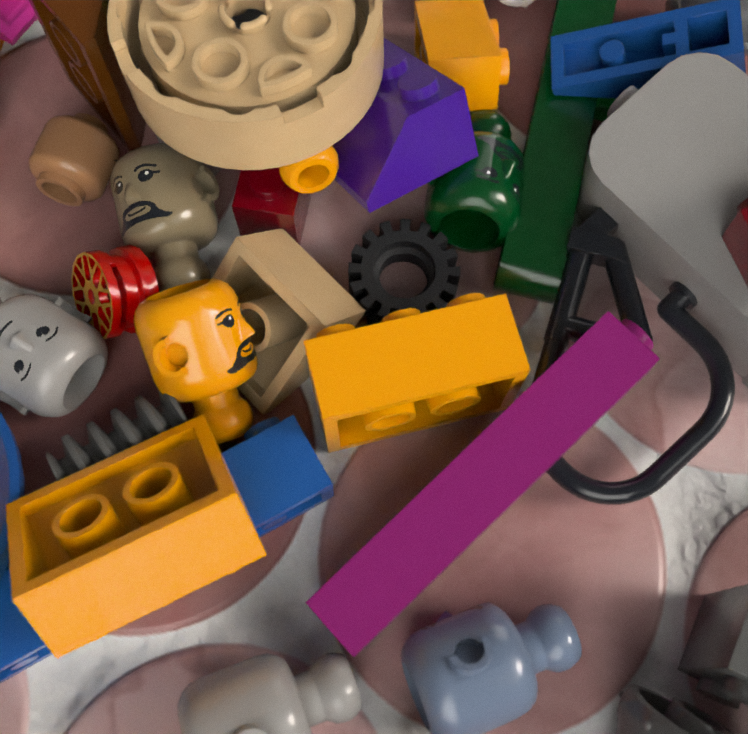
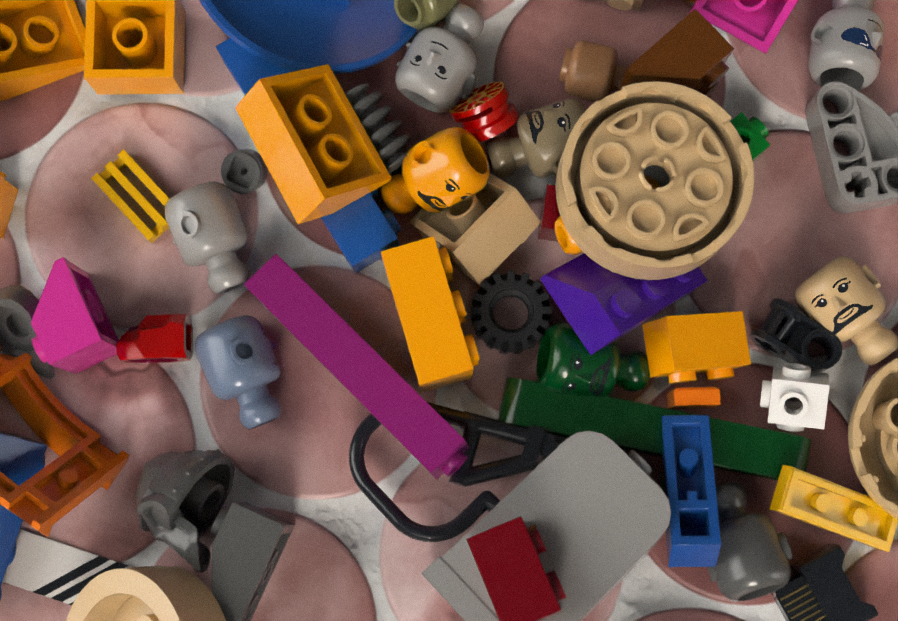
camera: 90 degrees right, 10 degrees up
(162, 661) = (244, 171): none -> dark grey tile
(522, 70) = (693, 398): none -> orange tile

